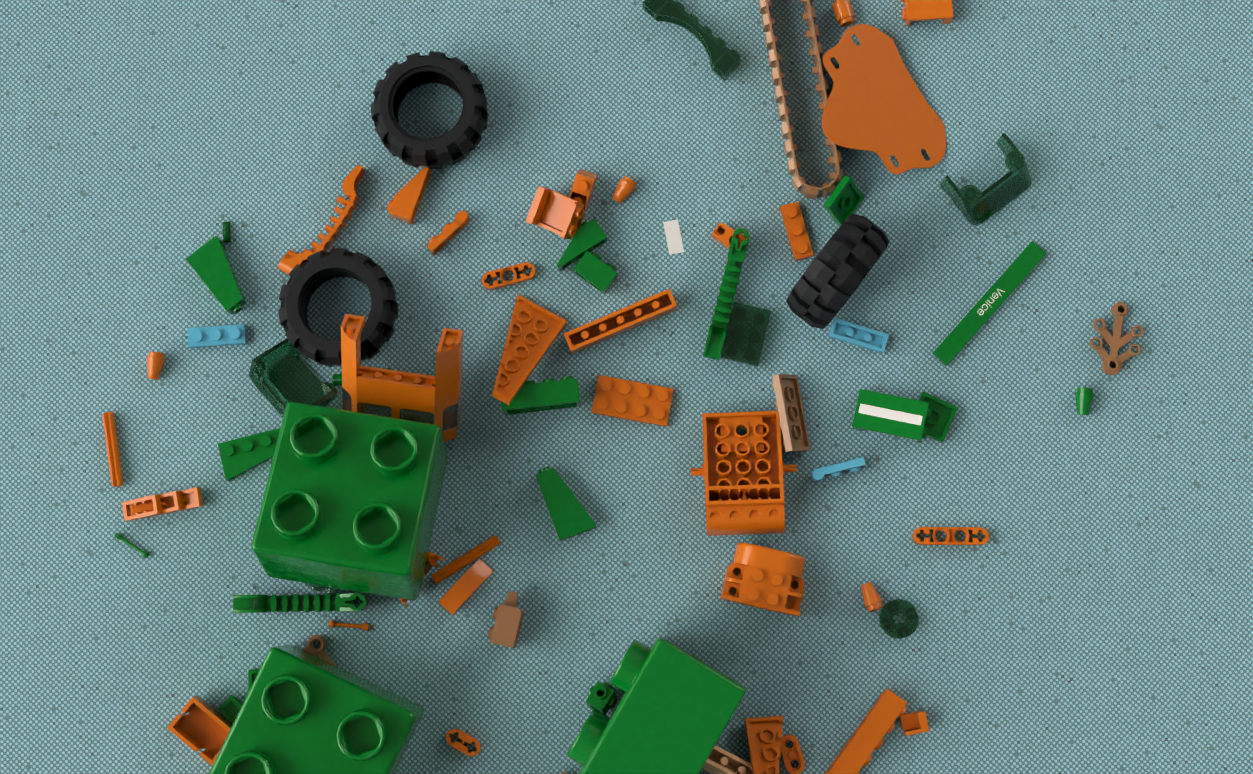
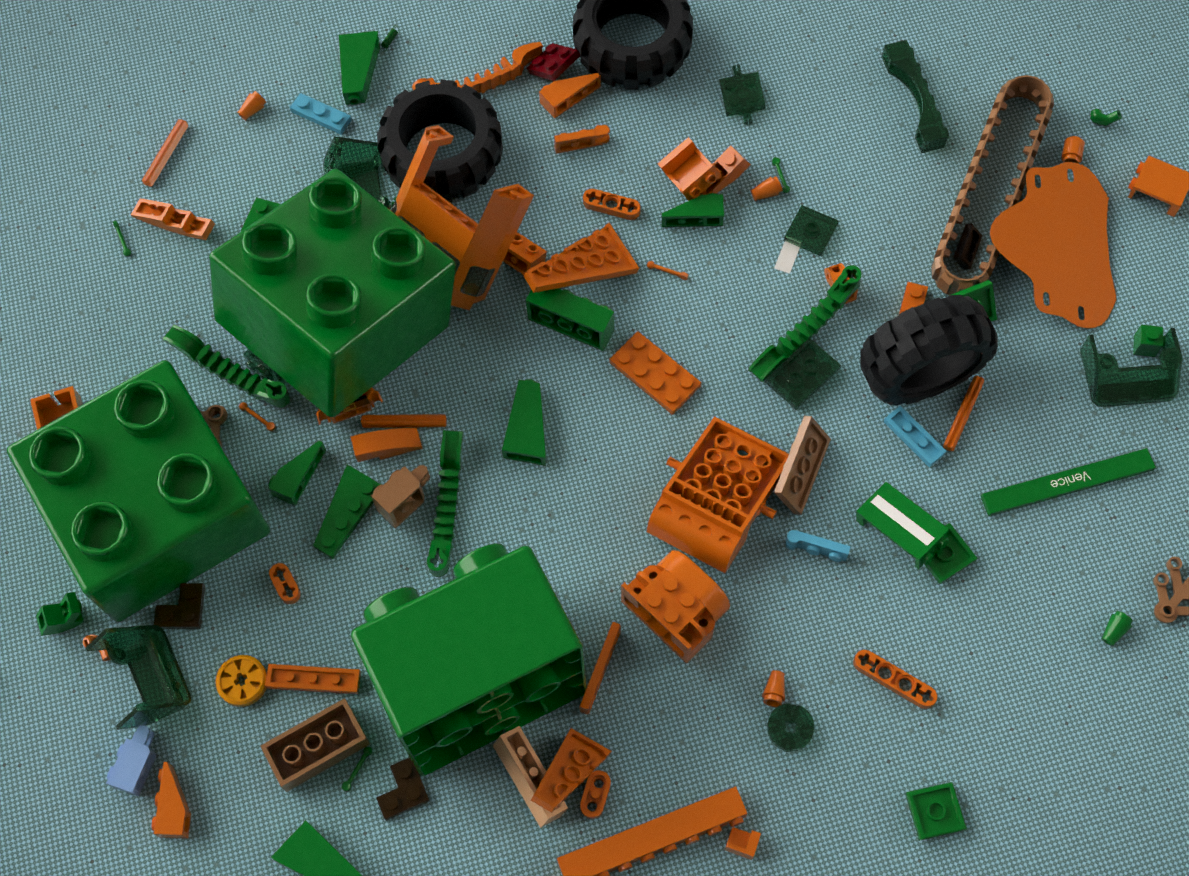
camera: 30 degrees right, 15 degrees down
(380, 175) = (553, 61): none -> dark red plate
(413, 660) = (295, 475): none -> green slope
(469, 649) = (345, 511): none -> green wing
(475, 366) = (524, 254): none -> orange brick
(542, 603) = (447, 499): none -> green piece
(552, 112) = (742, 94): none -> clear green plate
(572, 310) = (682, 275): none -> orange hinge
(596, 272) = (693, 241): green brick -> none
(615, 158) = (776, 161): none -> green hinge
(620, 321) = (689, 294): orange brick -> none
(679, 204) = (811, 230): none -> clear green plate
(737, 656) = (600, 668): none -> orange tile
(809, 147) = (967, 246): none -> black plate
(883, 294) = (963, 413): none -> orange axle
(988, 149) = (1148, 340): none -> green brick
(1032, 616) = (935, 811): none -> green plate

